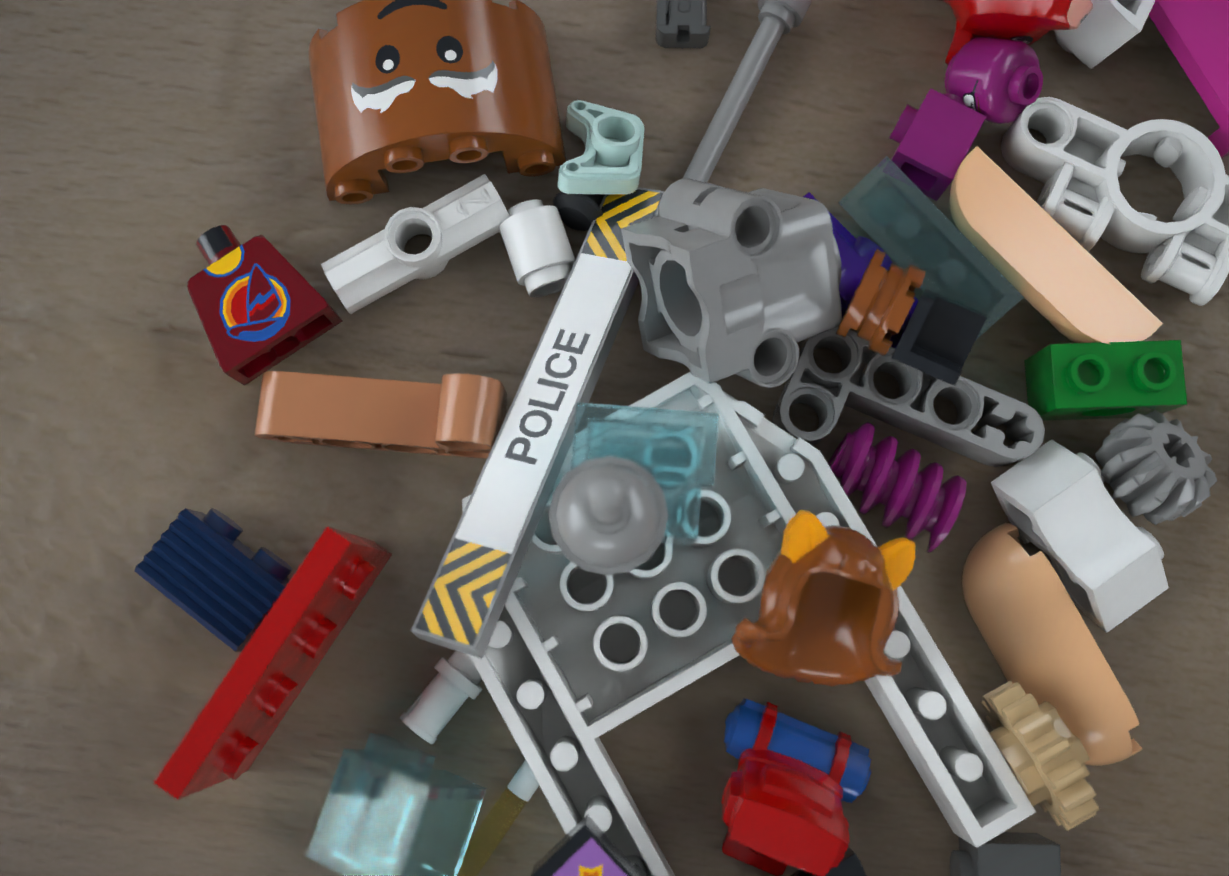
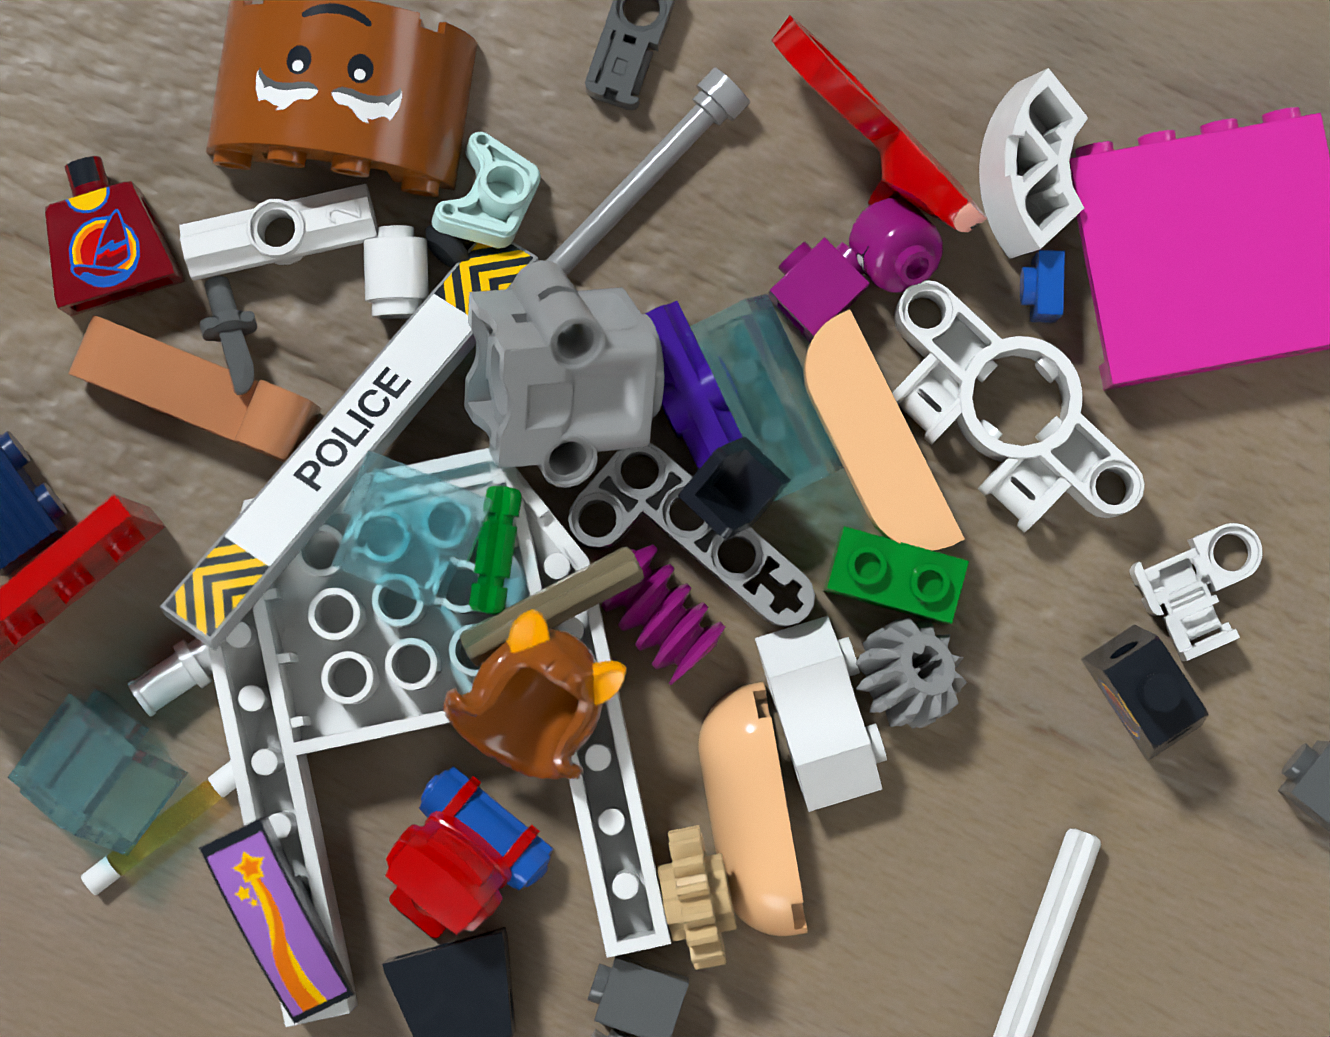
camera: 20 degrees right, 5 degrees up
(398, 345) = (229, 328): none -> dark grey piece
(608, 515) = (359, 561): light grey piece -> none
(732, 474) = (495, 551): none -> green axle
(814, 493) = (557, 602): none -> dark tan axle
(881, 303) = (689, 437): dark orange wheel -> none
(1139, 78) = (1044, 286): none -> blue plate

